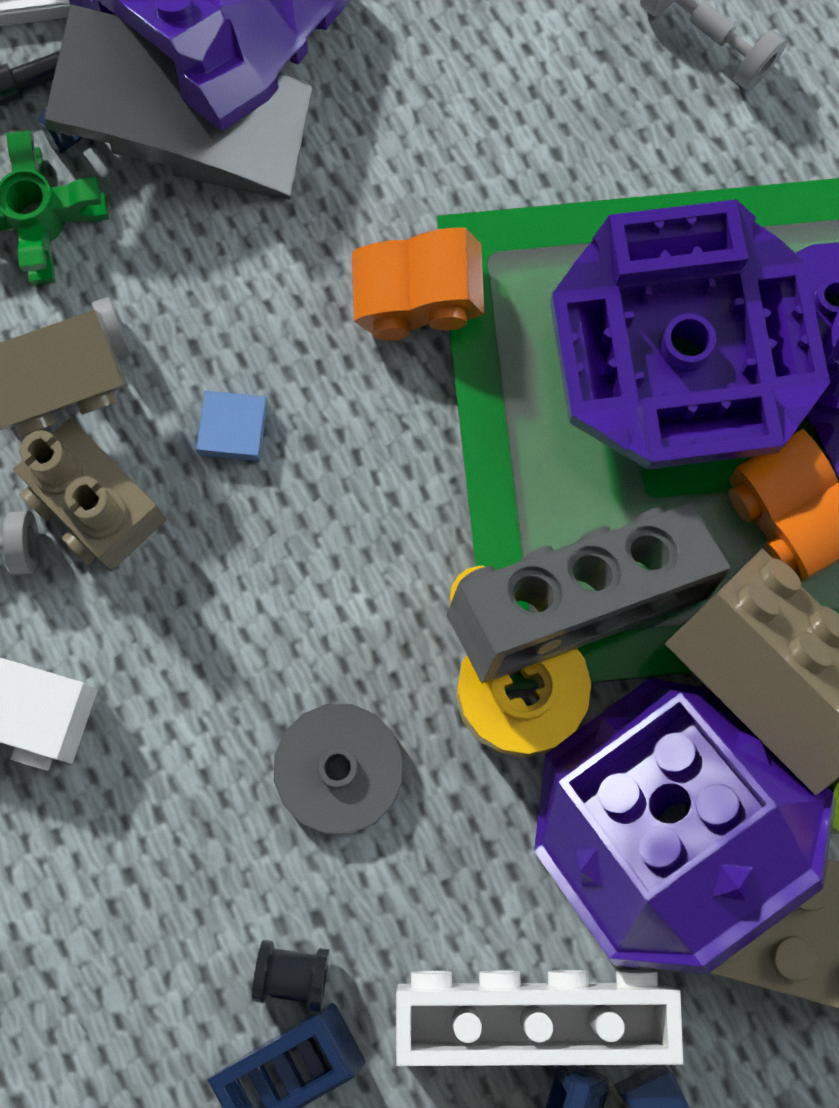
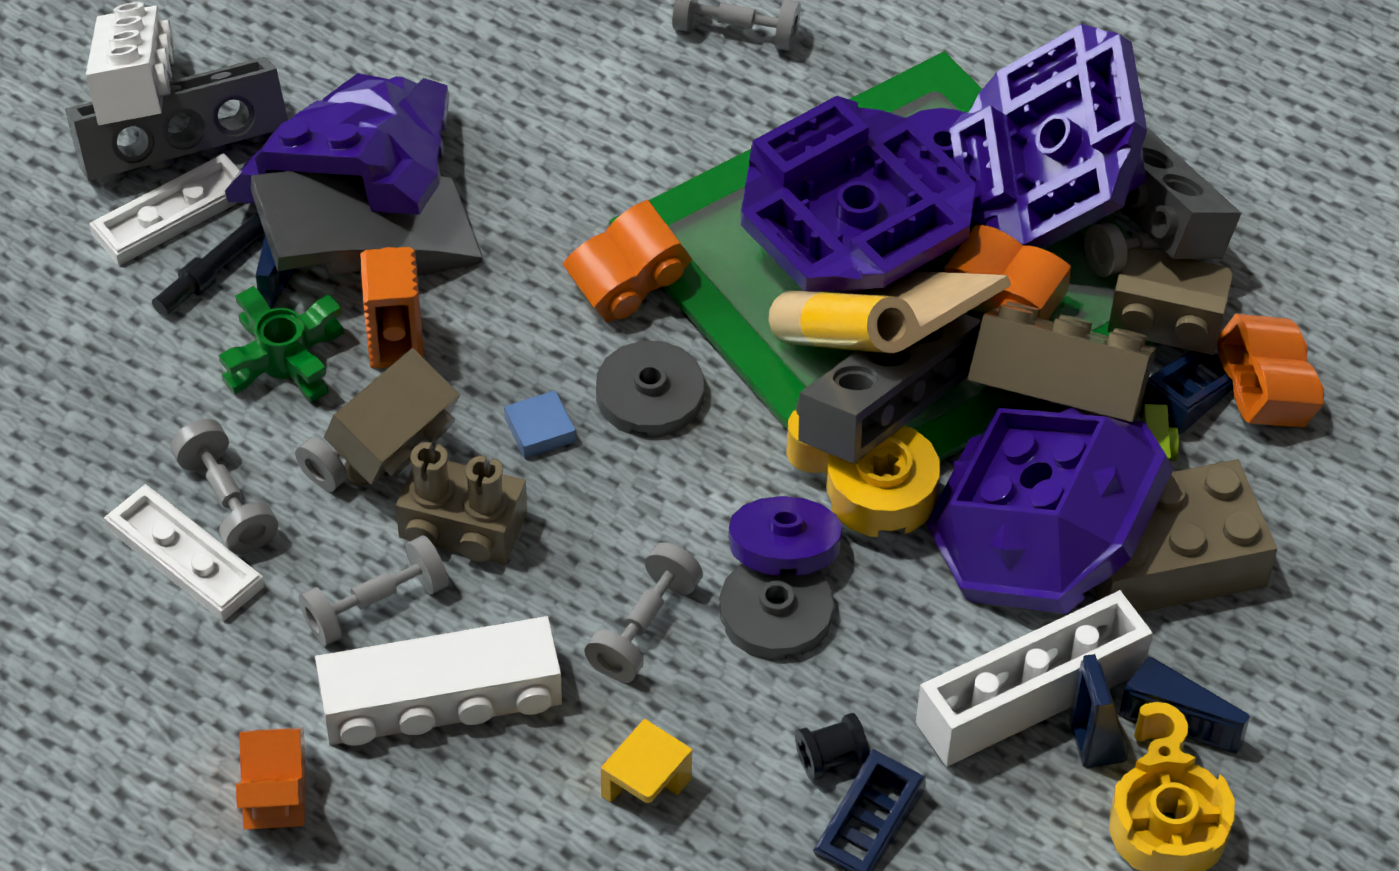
camera: 30 degrees left, 25 degrees down
(88, 906) = (647, 764): none -> yellow panel
(140, 748) = (615, 653): none -> light grey wheel
(142, 222) = (391, 304): none -> orange brick
(372, 468) = (655, 407): none -> dark grey plate
(384, 725) = (785, 535): none -> dark purple plate
(631, 527) = (883, 317): none -> tan door

